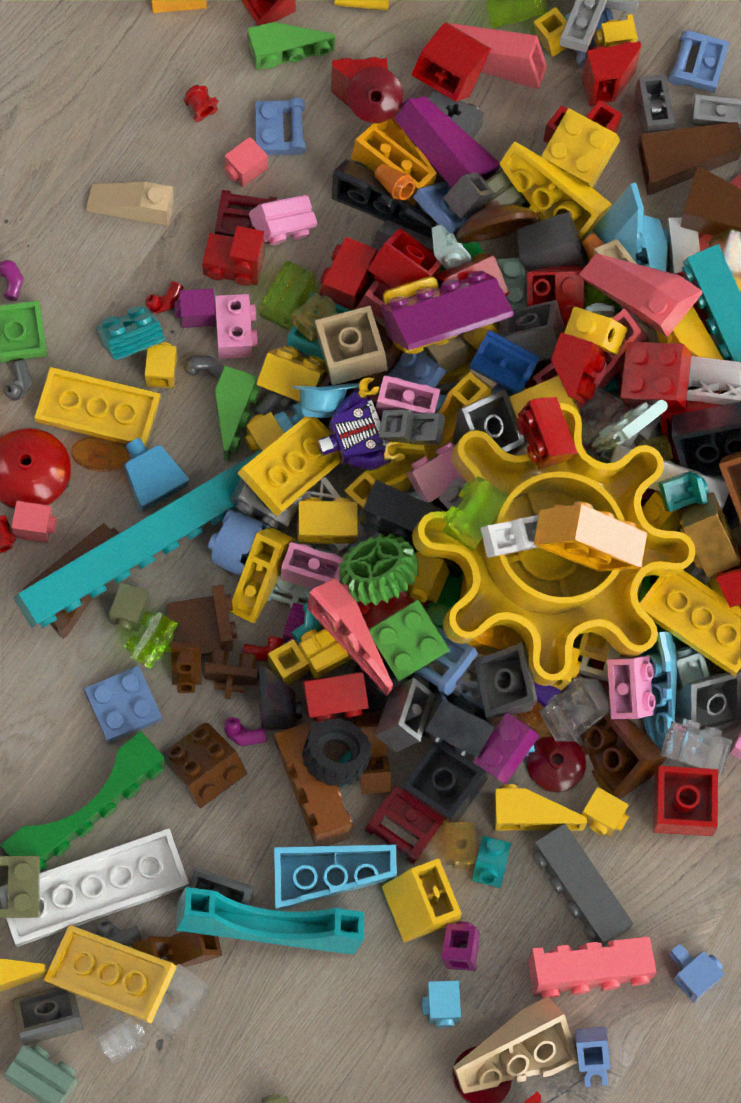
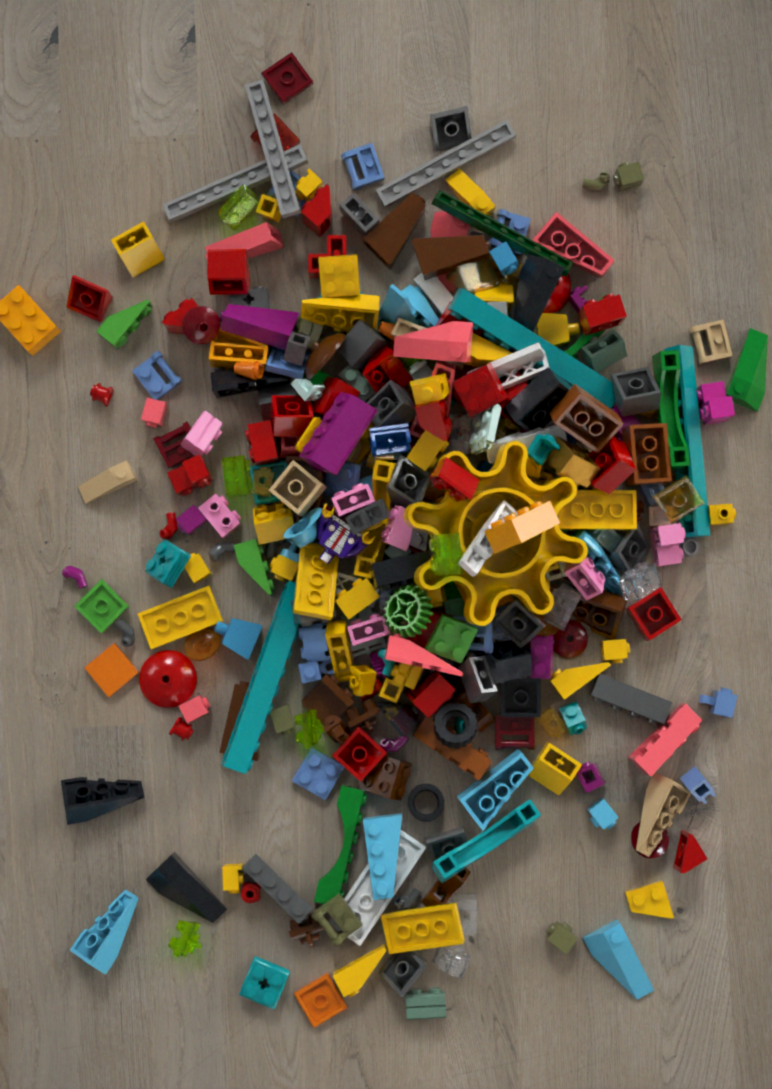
camera: 30 degrees left, 15 degrees up
(134, 839) = (382, 845): none -> medium azure wedge
(191, 708) = (359, 753): none -> red slope
(209, 572) = (312, 670): none -> medium blue brick
(217, 811) = (440, 802): none -> black tyre
(261, 625) = (362, 680): none -> yellow brick

